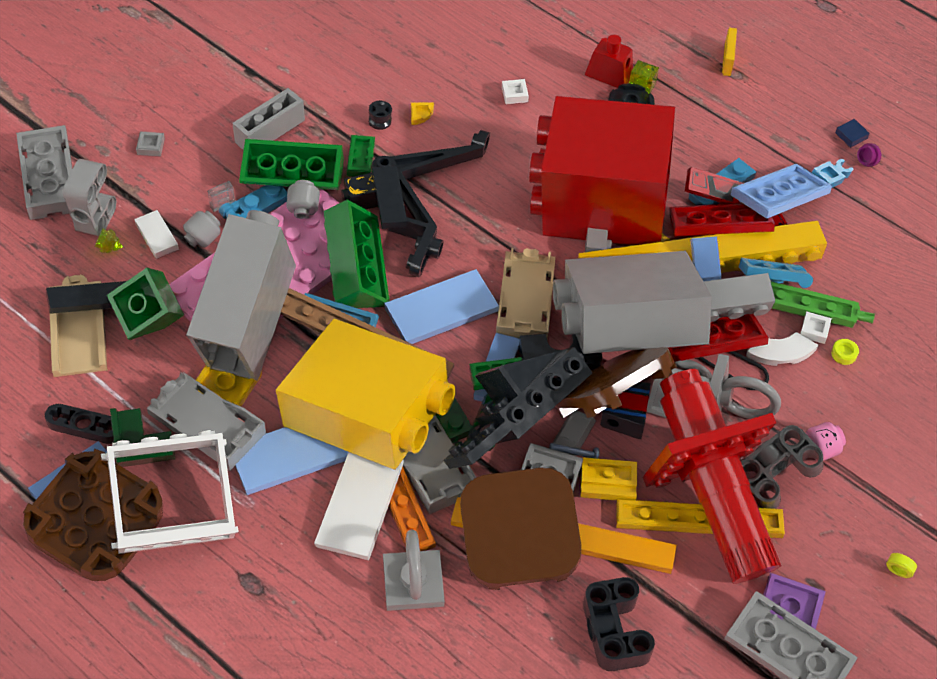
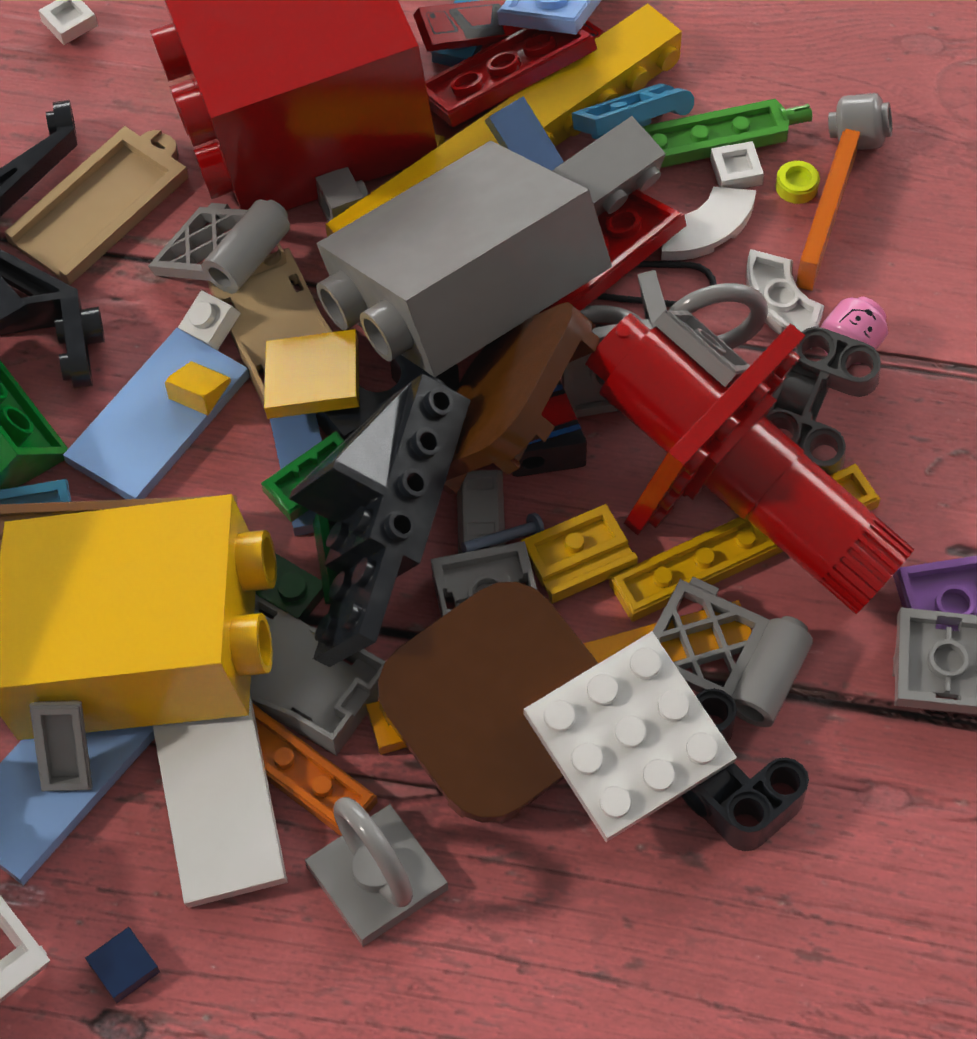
camera: 25 degrees left, 5 degrees up
(269, 556) = (122, 965): none -> dark blue tile
(299, 437) = (61, 745): none -> light grey tile
(467, 302) = (196, 387): none -> yellow slope
(476, 190) = (99, 202): none -> tan piece
(494, 273) = (209, 319): none -> white plate
(521, 241) = (229, 255): none -> light grey piece
(526, 323) = (311, 374): none -> yellow tile
(573, 578) = (629, 736): none -> white plate
(669, 582) = (766, 661): none -> light grey piece
(725, 401) = (702, 345): none -> light grey tile
(795, 404) = (785, 302): none -> white tile
(851, 373) = (827, 209): none -> orange tile
(898, 336) = (863, 114): none -> light grey head

